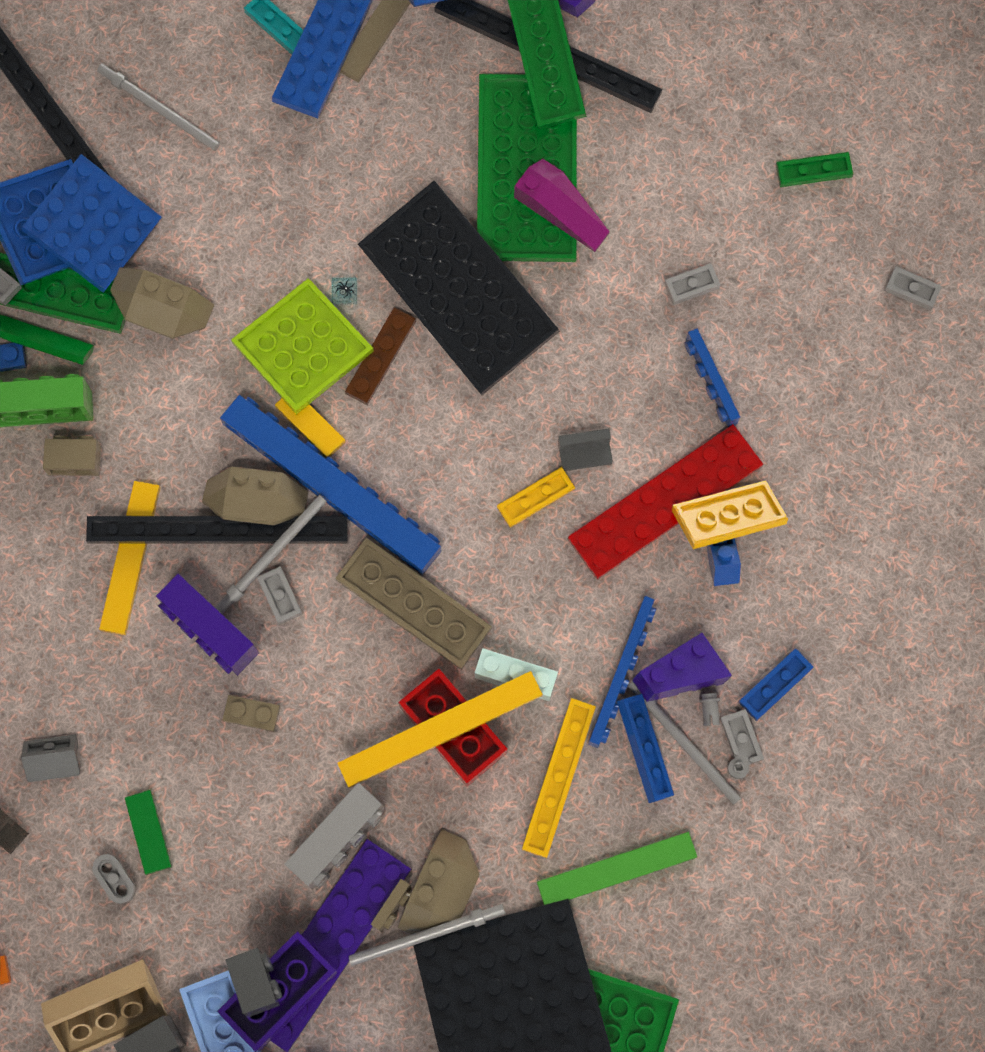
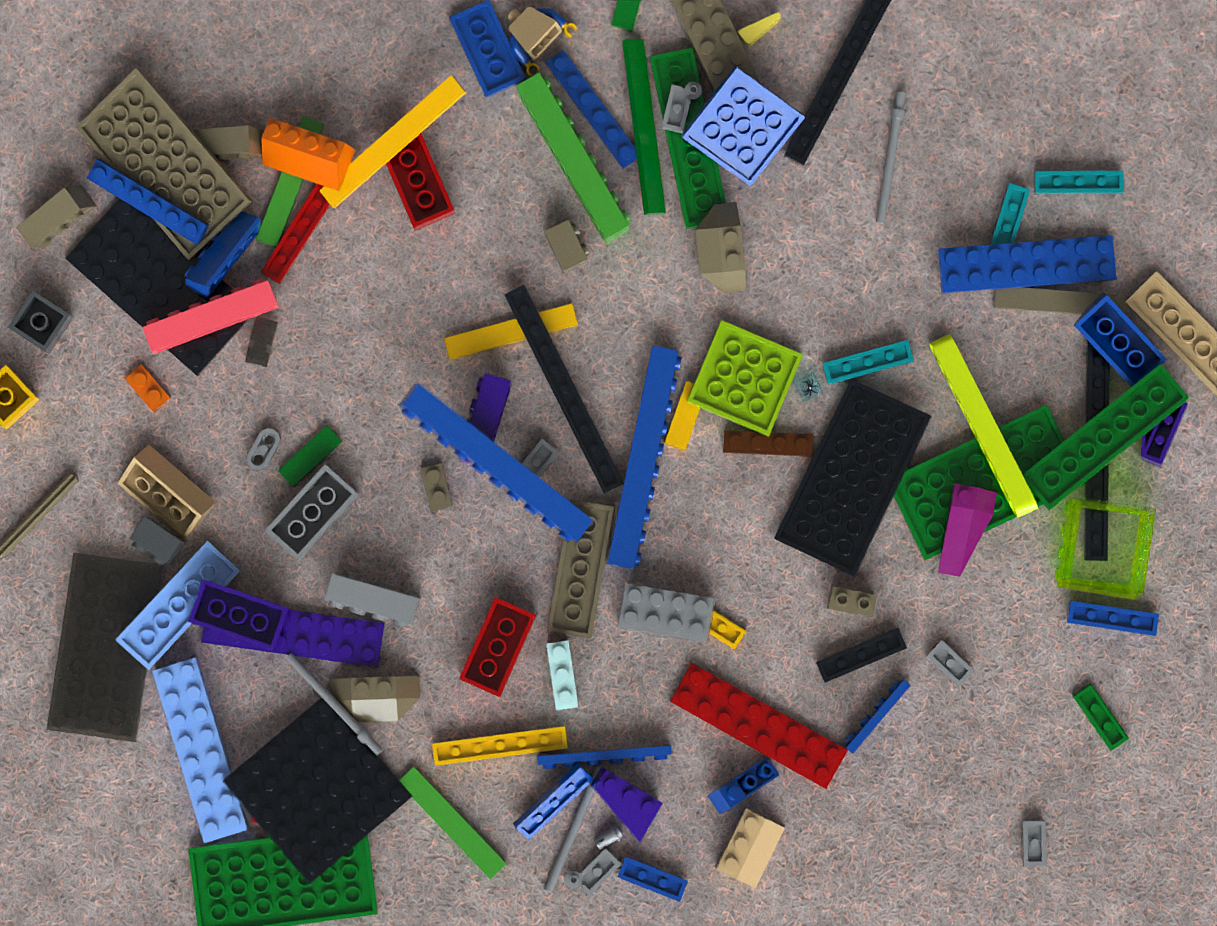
camera: 60 degrees right, 10 degrees up
(50, 758) = (329, 353): dark grey panel -> none
(91, 223) = (760, 161): blue plate -> none
(208, 857) = (312, 512): none -> light grey brick
(236, 591) = (524, 428): light grey bar -> none
(252, 629) = (495, 462): none -> blue brick
(253, 982) = (234, 597): dark grey brick -> none
(254, 496) = (603, 404): dark tan wedge -> none
(349, 221) = (868, 362): none -> teal plate
(386, 915) = (333, 666): dark tan plate -> none
(439, 729) = (489, 639): yellow tile -> none
(470, 138) = (983, 425): none -> neon yellow beam
(503, 535) = (666, 613): none -> light grey brick
(583, 347) = (852, 601): none -> dark tan brick
(585, 449) = (768, 643): dark grey panel -> none
(642, 365) = (861, 655): none -> black plate
(668, 47) = (1141, 553): none -> clear neon green windscreen
(721, 112) = (1112, 618): none -> blue plate
(729, 514) = (769, 781): yellow tile -> none
(788, 569) = (750, 848): none -> tan slope

